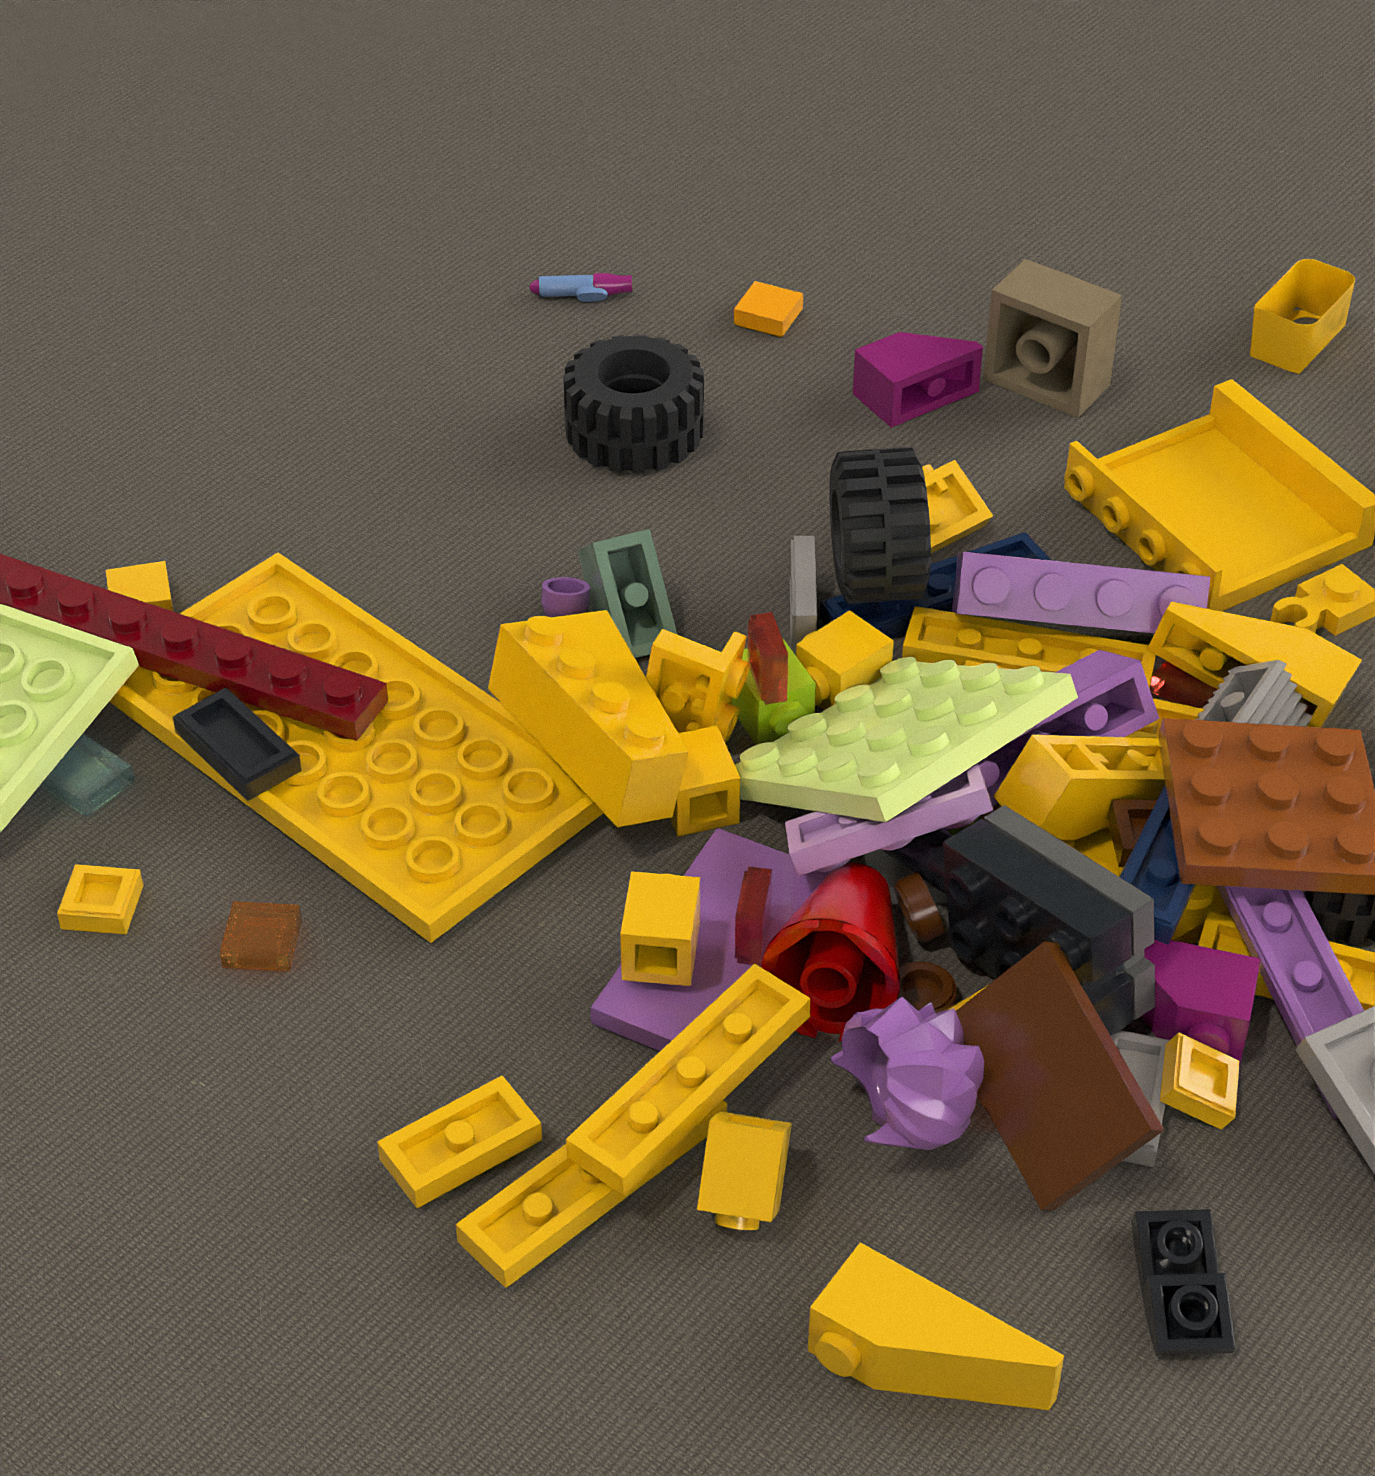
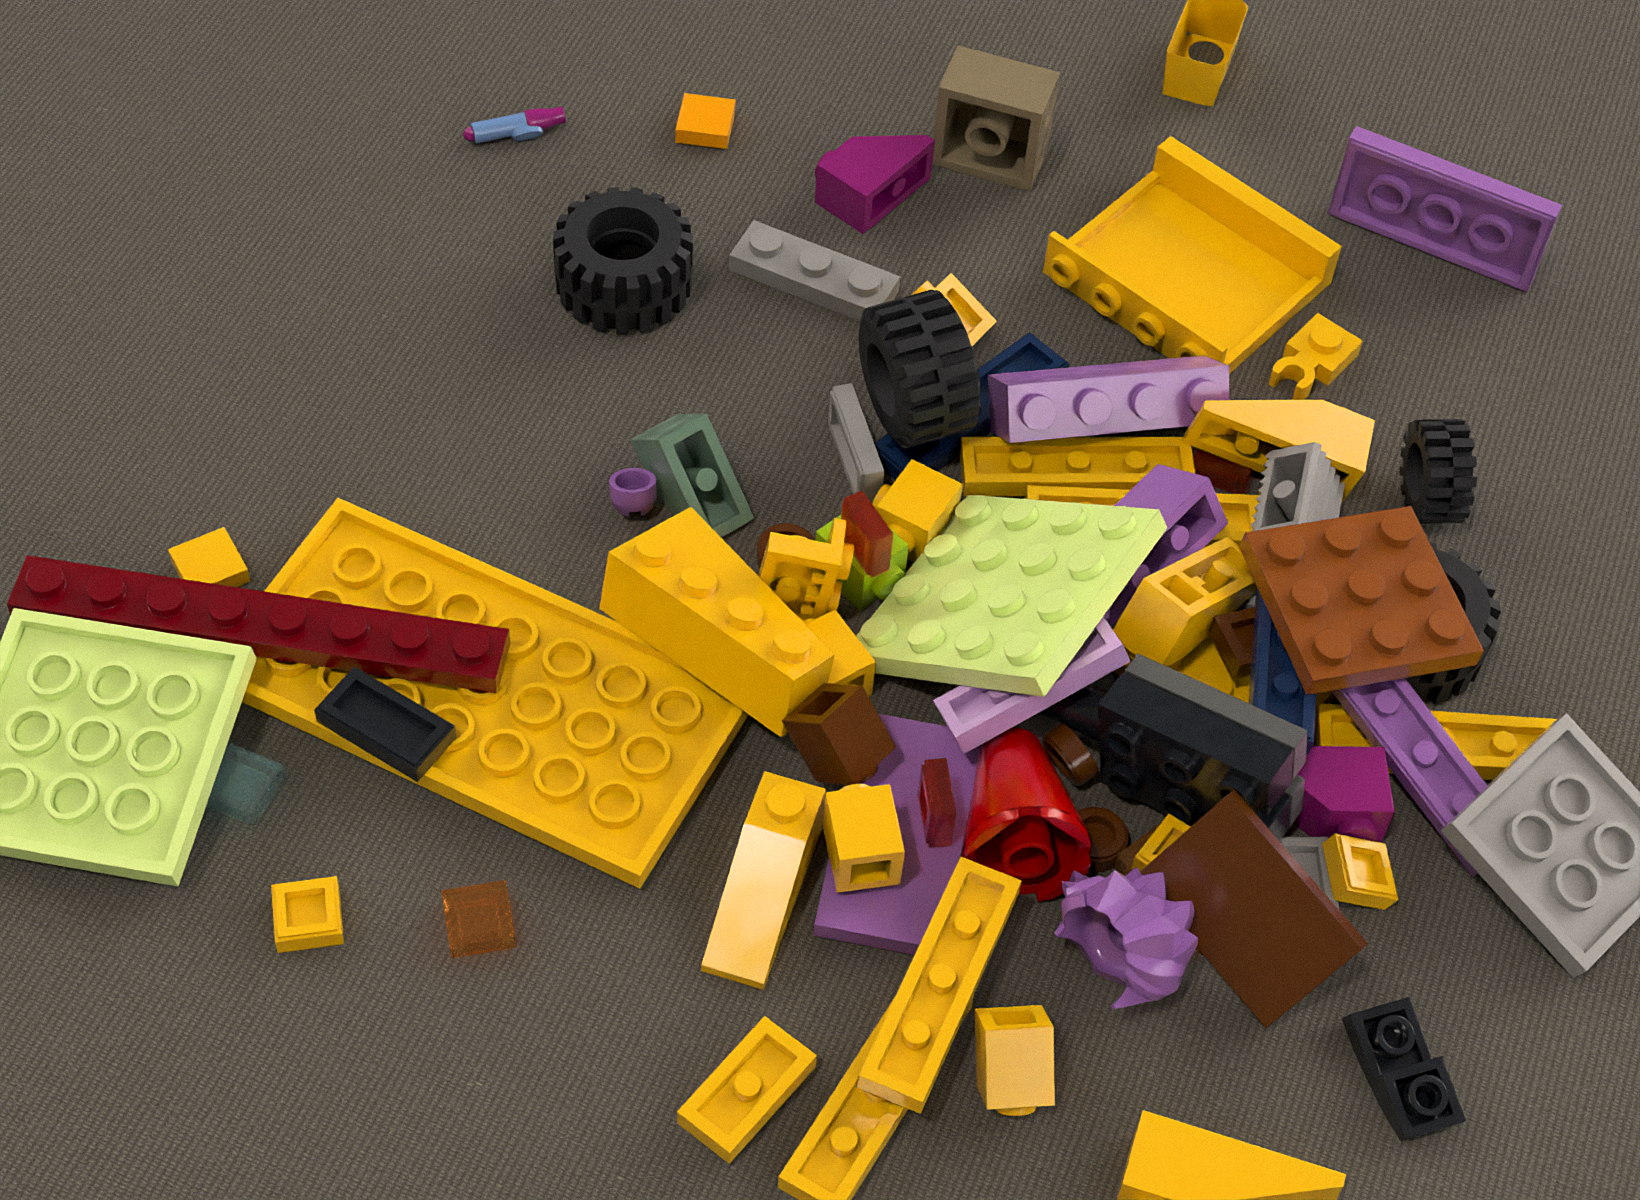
camera: 20 degrees left, 10 degrees up
(554, 956) = (764, 879): none -> yellow slope
(674, 830) = (839, 734): none -> reddish brown brick
(801, 436) = (811, 271): none -> light grey plate

